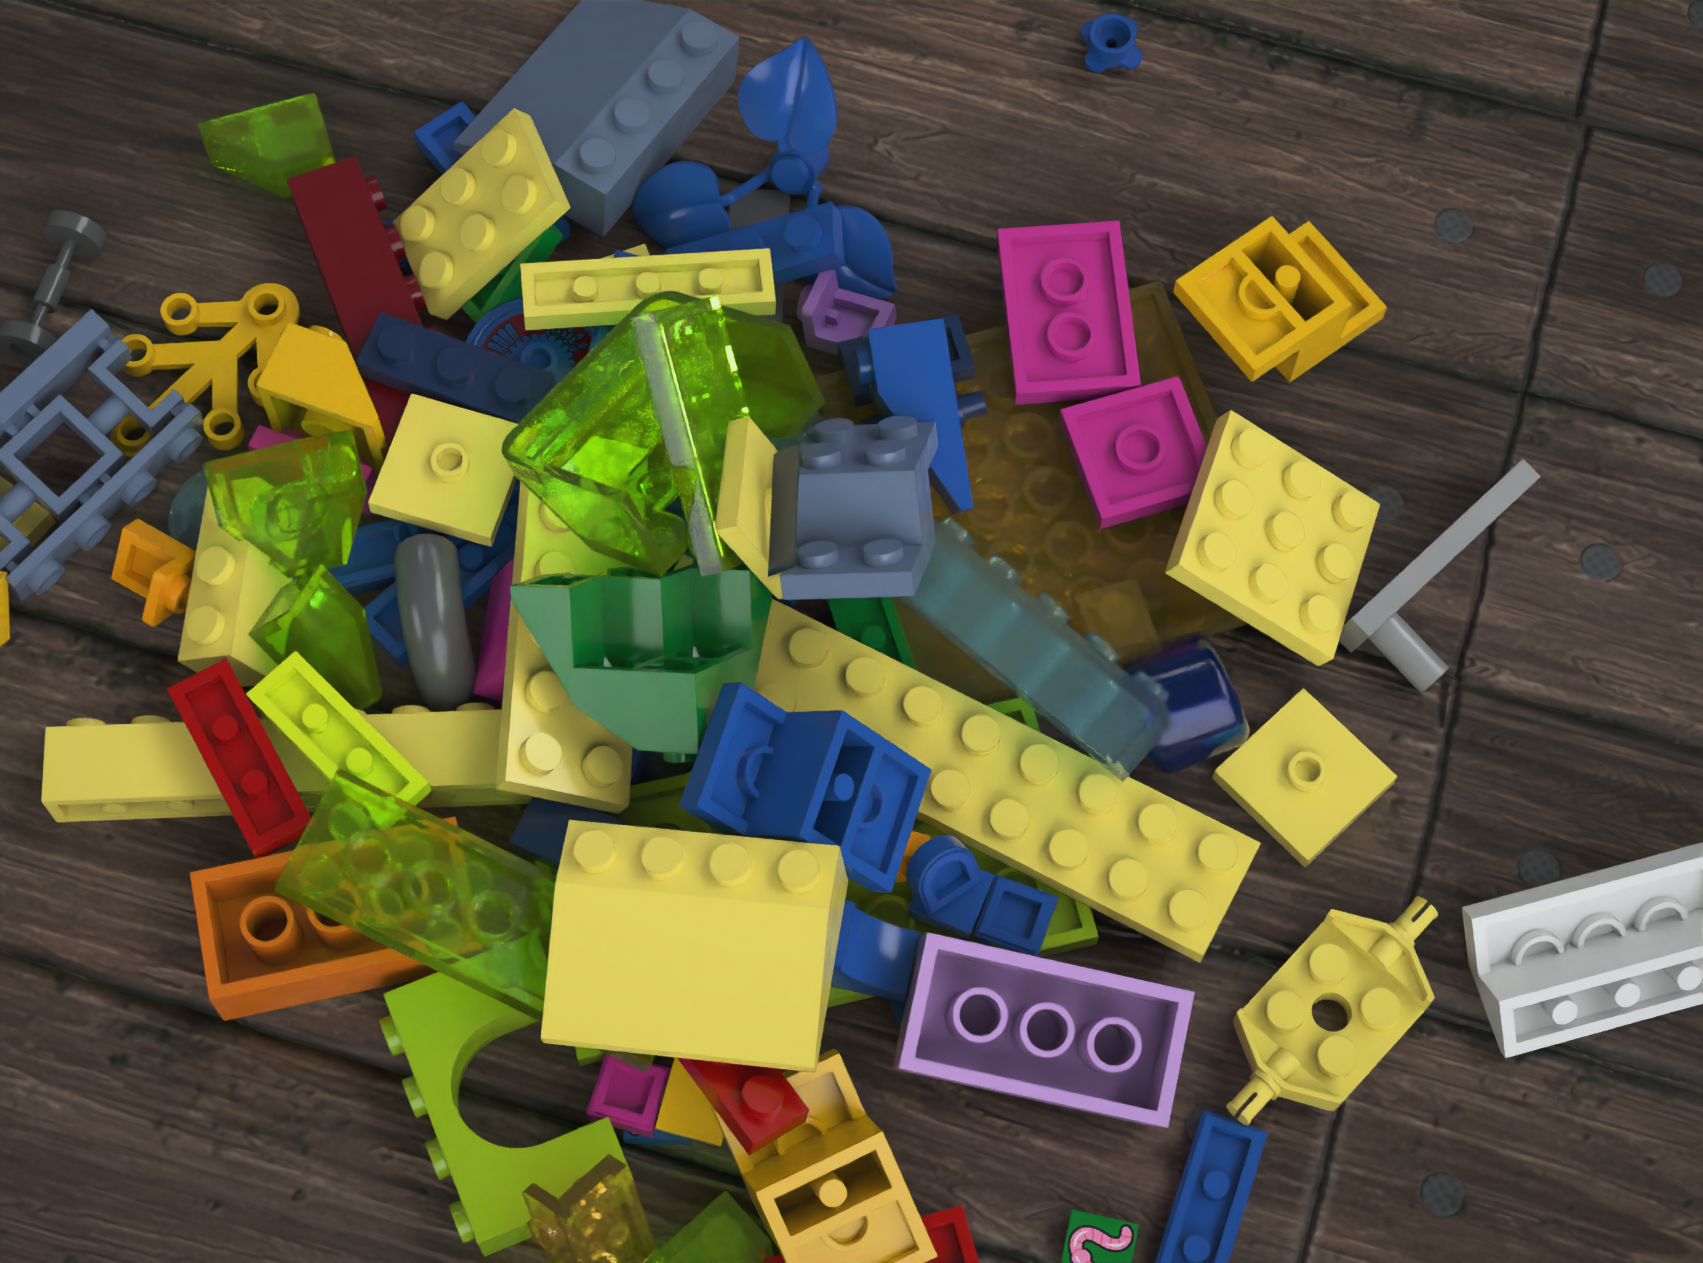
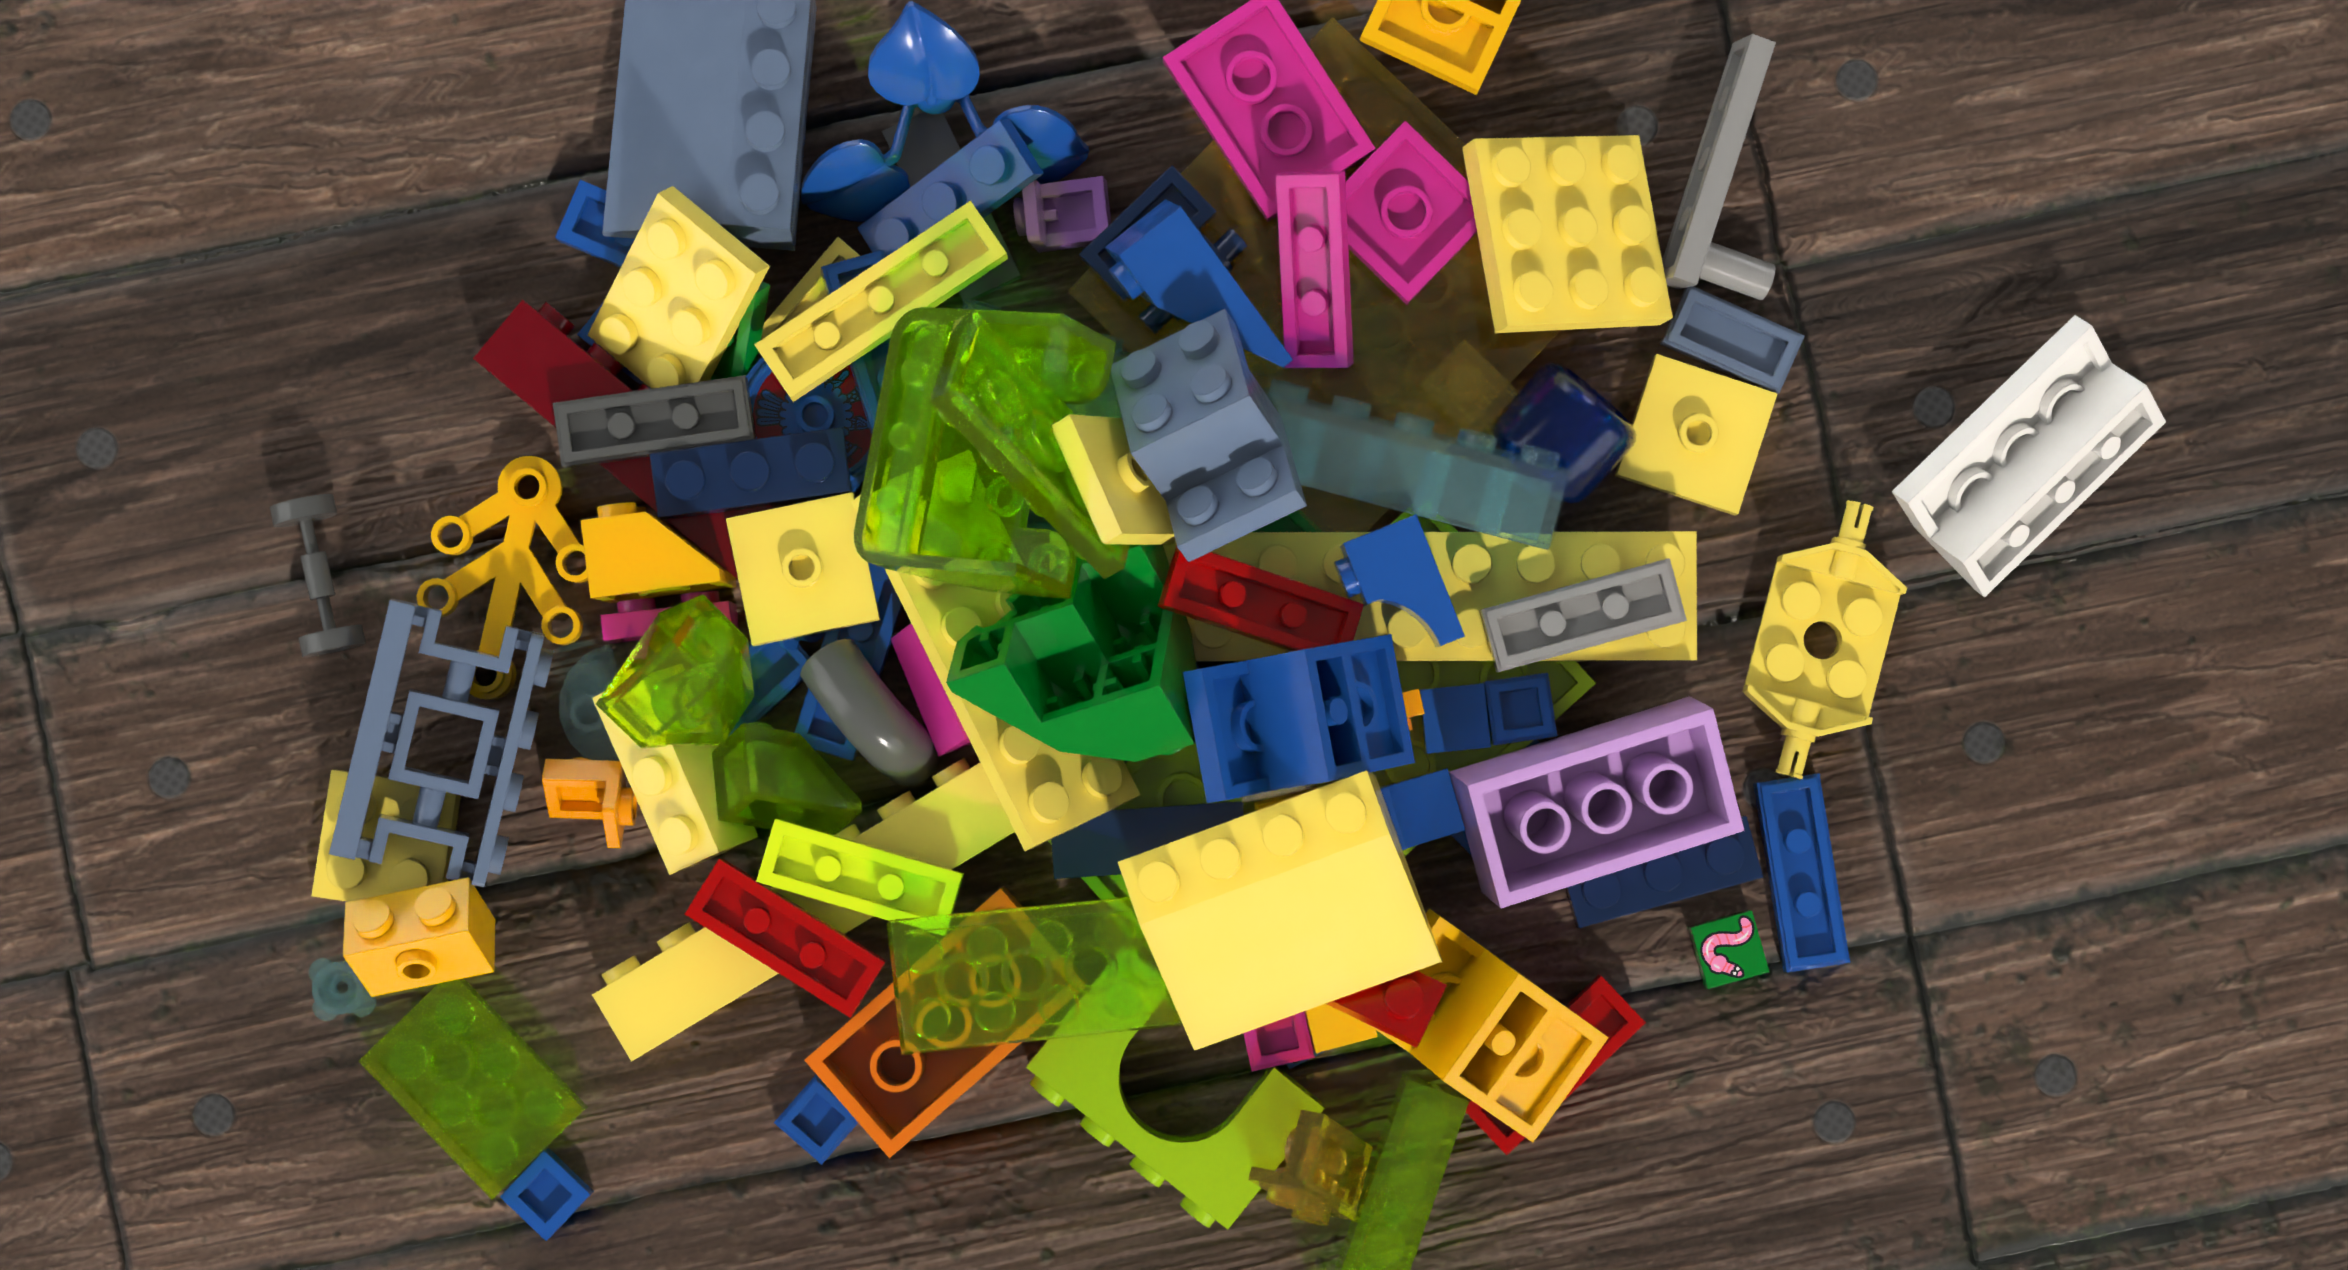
camera: 25 degrees left, 20 degrees up
(171, 957) = (816, 1120): none -> blue tile
(270, 142) = (436, 319): clear neon green slope -> none
(375, 283) = (653, 421): none -> dark grey tile
(784, 510) = (1150, 487): sticker -> none
(819, 672) = (1258, 603): none -> red plate
(941, 872) = (1444, 714): blue tile -> none
(966, 725) = (1399, 570): none -> blue arch
(1033, 450) = (1315, 268): none -> dark pink plate
(1071, 1146) = (1667, 879): none -> dark blue plate
(1117, 854) = (1583, 615): none -> light grey tile
(1379, 713) = (1732, 339): none -> sand blue tile

